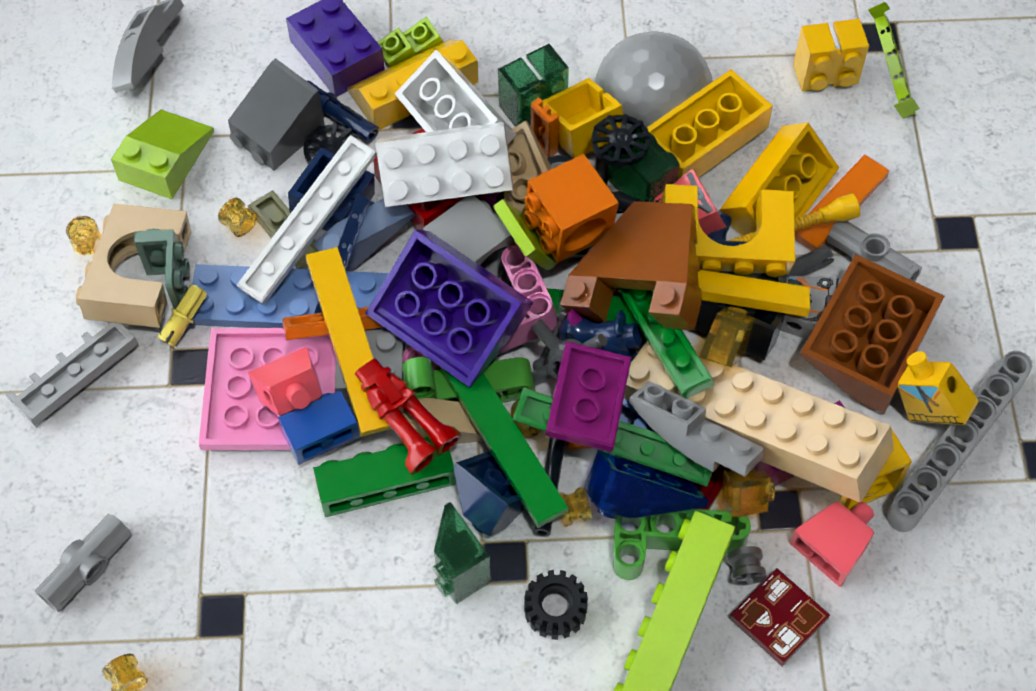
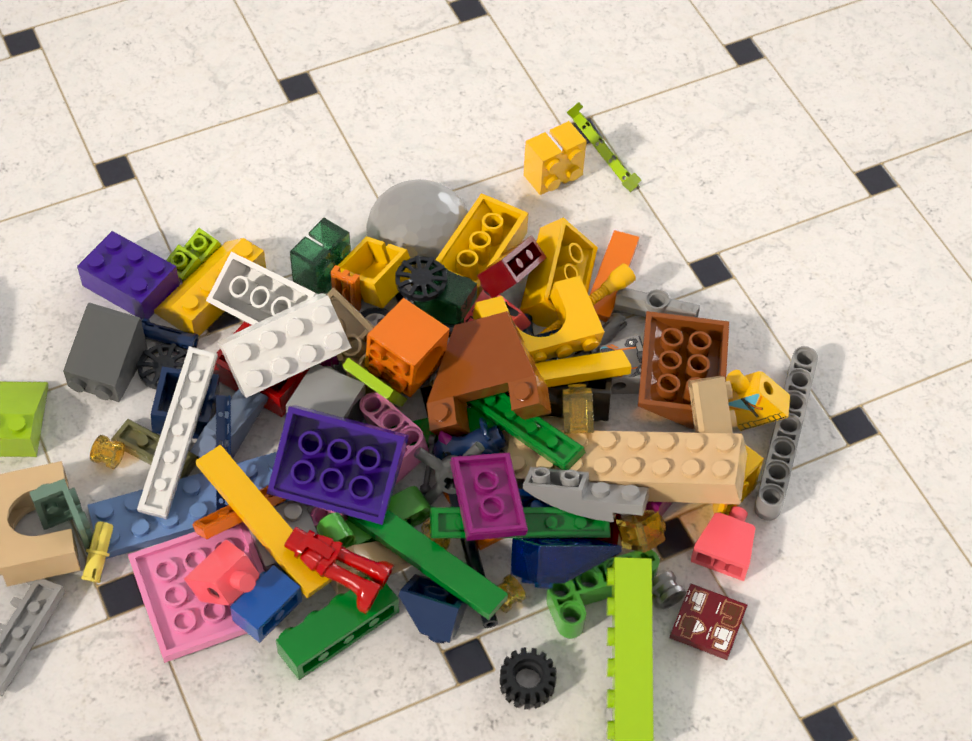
camera: 25 degrees left, 5 degrees down
(460, 559) = (435, 667): clear green slope -> none
(725, 158) = (511, 267): none -> dark red brick
(877, 382) = (711, 406): none -> tan slope

